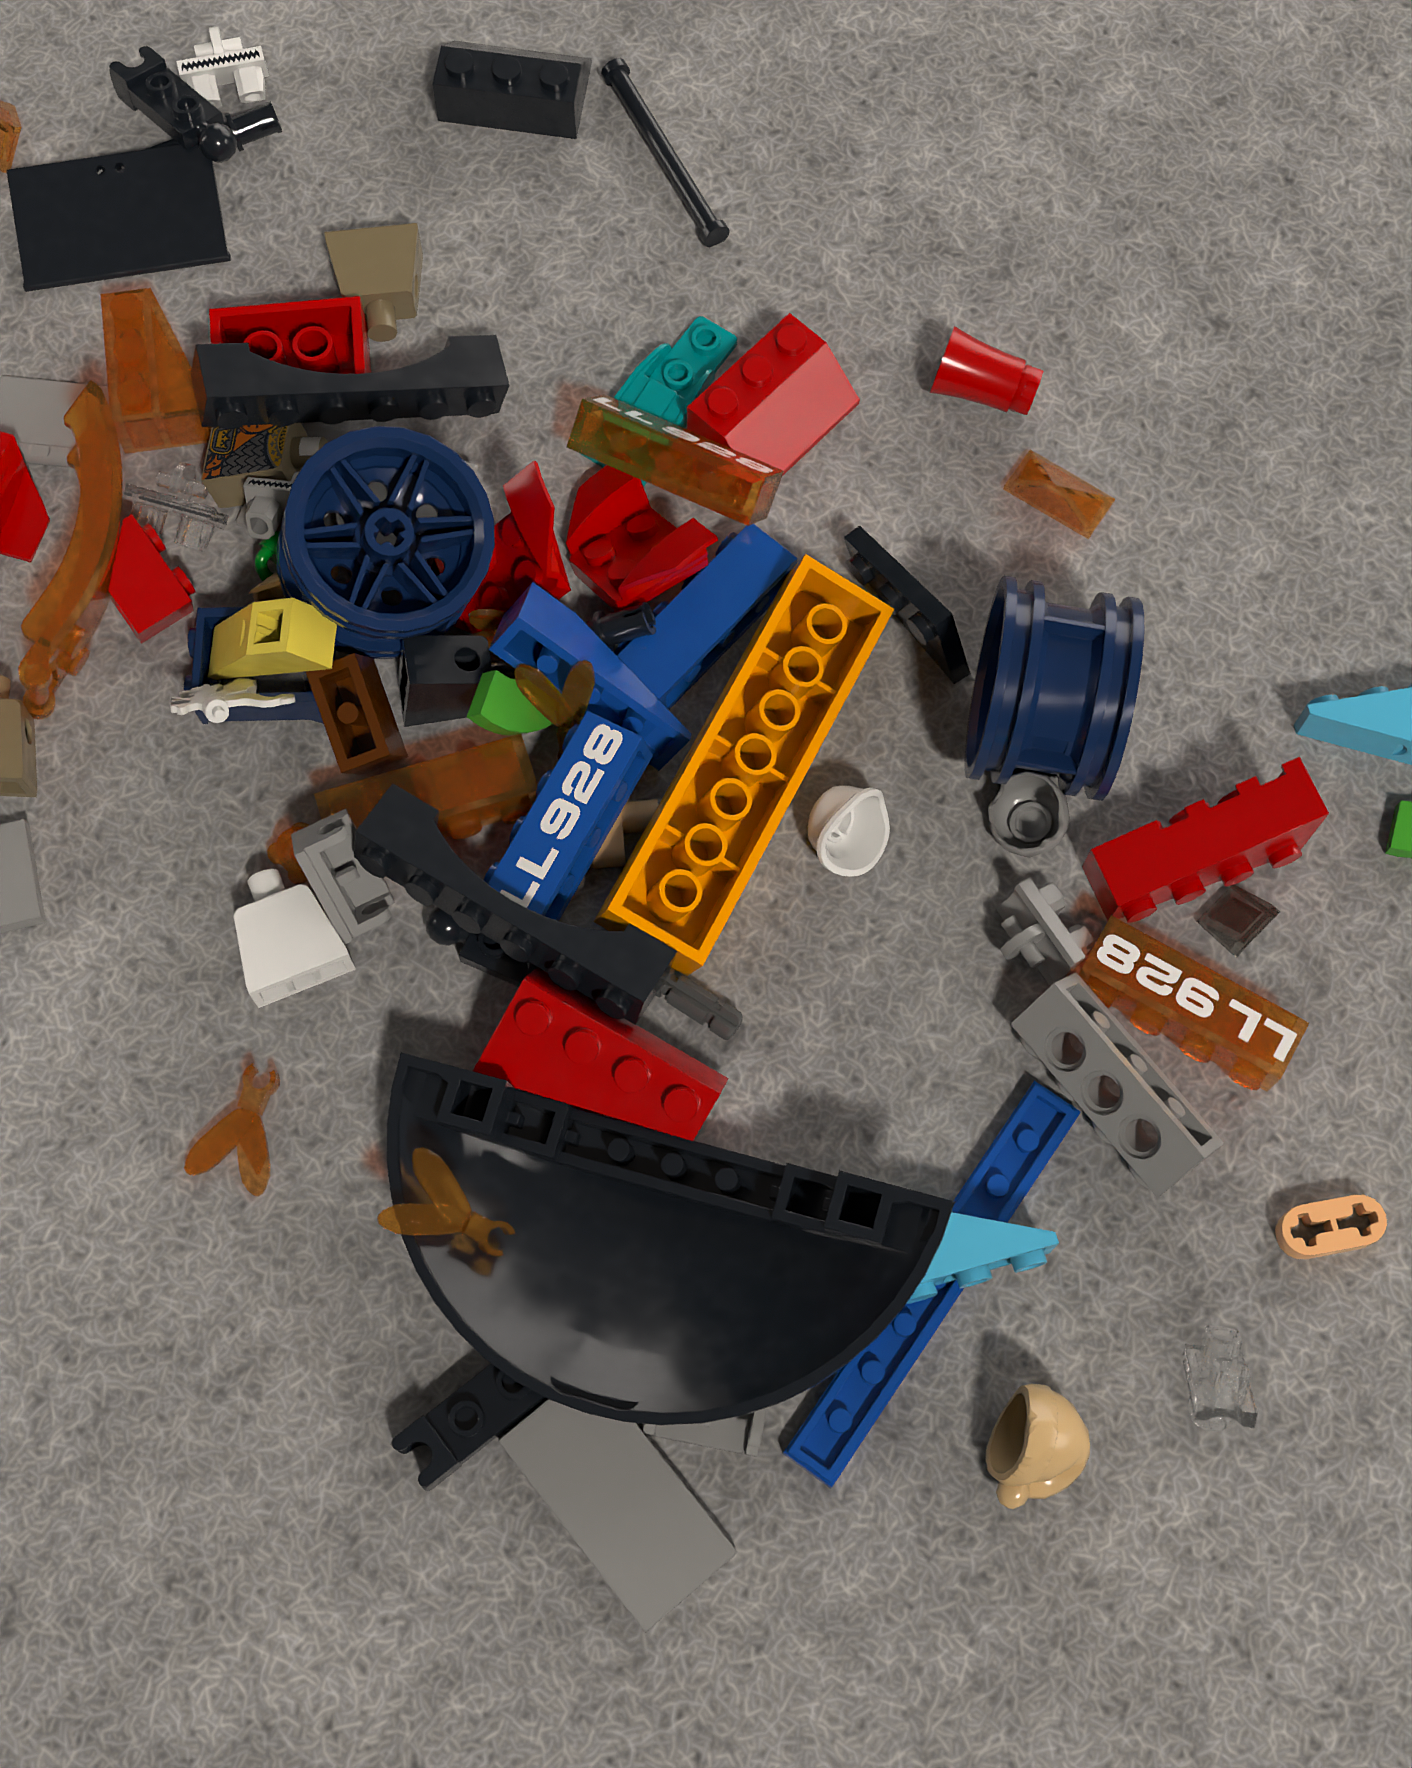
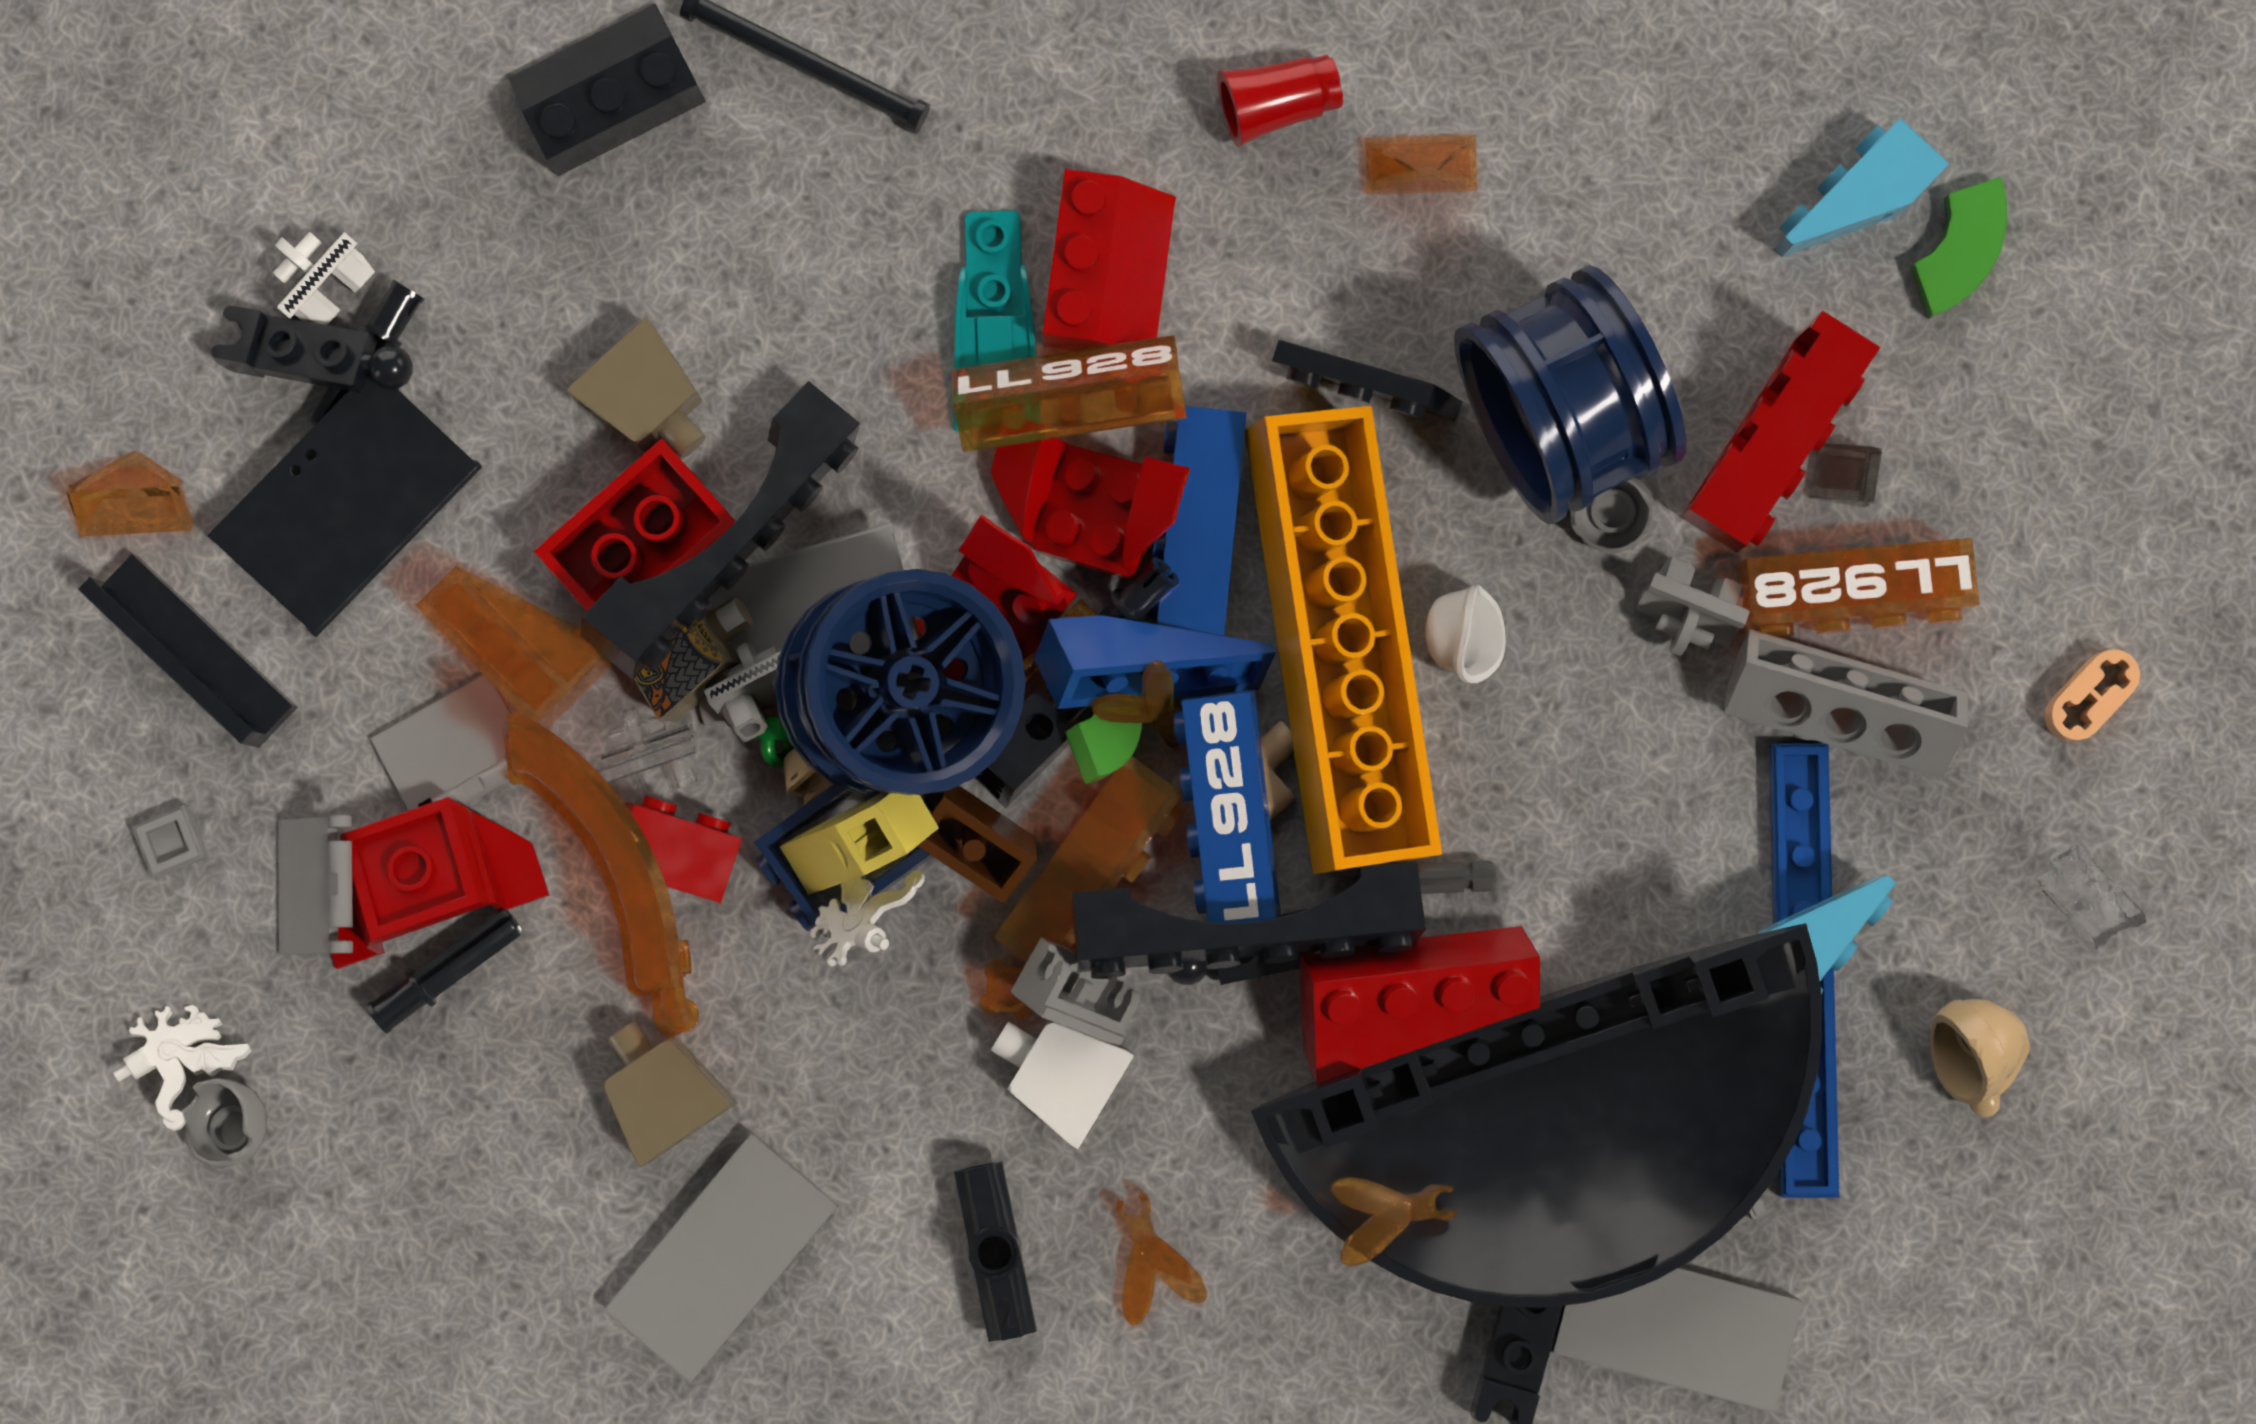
camera: 30 degrees left, 15 degrees up
(112, 1065) = (1002, 1287): none -> black piece

